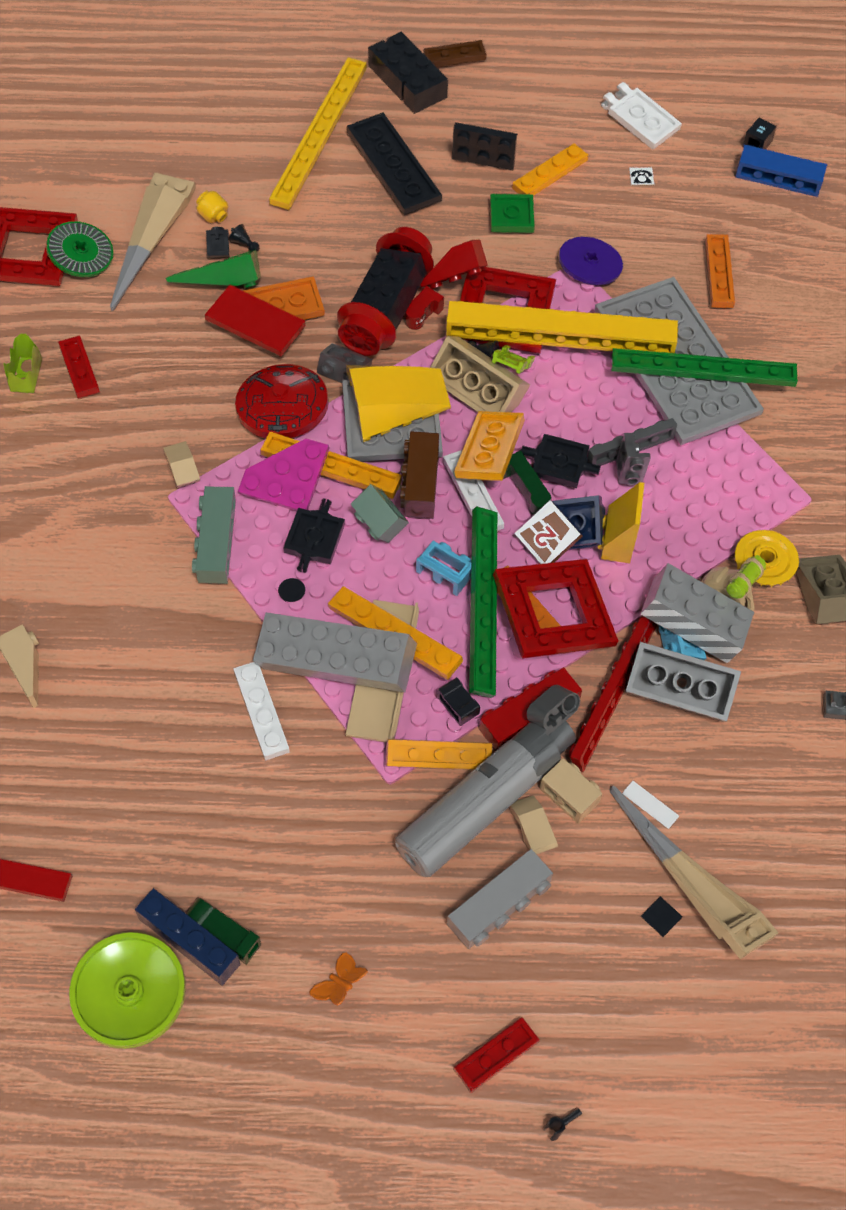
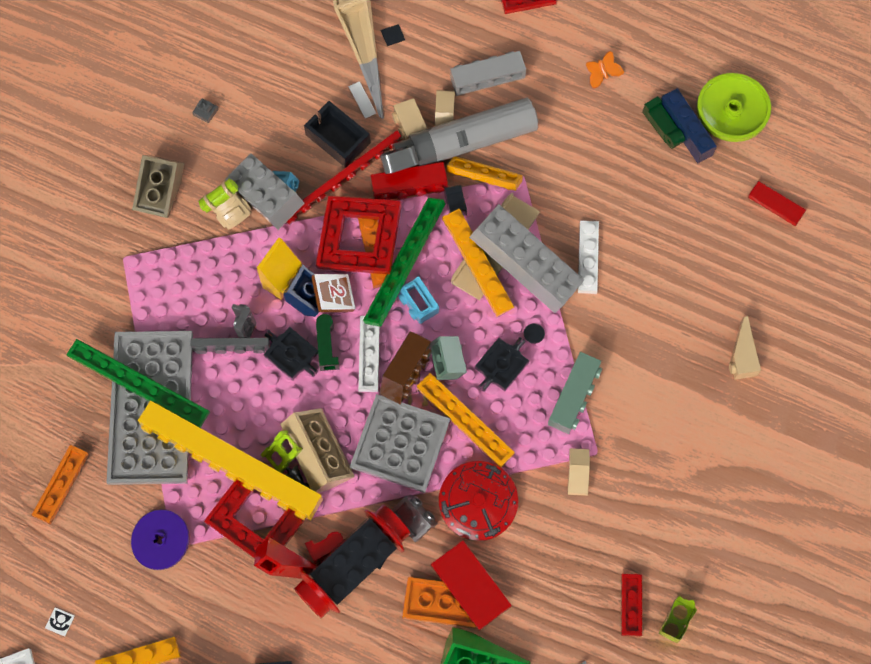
camera: 155 degrees left, 10 degrees up
(287, 476) = (503, 419): dark pink plate -> none
(395, 396) = (390, 456): yellow wedge -> none
(489, 445) = (340, 377): light orange plate -> none
(512, 213) = (198, 620): green plate -> none
(653, 728) = (337, 134): none -> black piece
(708, 687) = (301, 152): light grey brick -> none
(774, 549) = (180, 212): yellow gear -> none

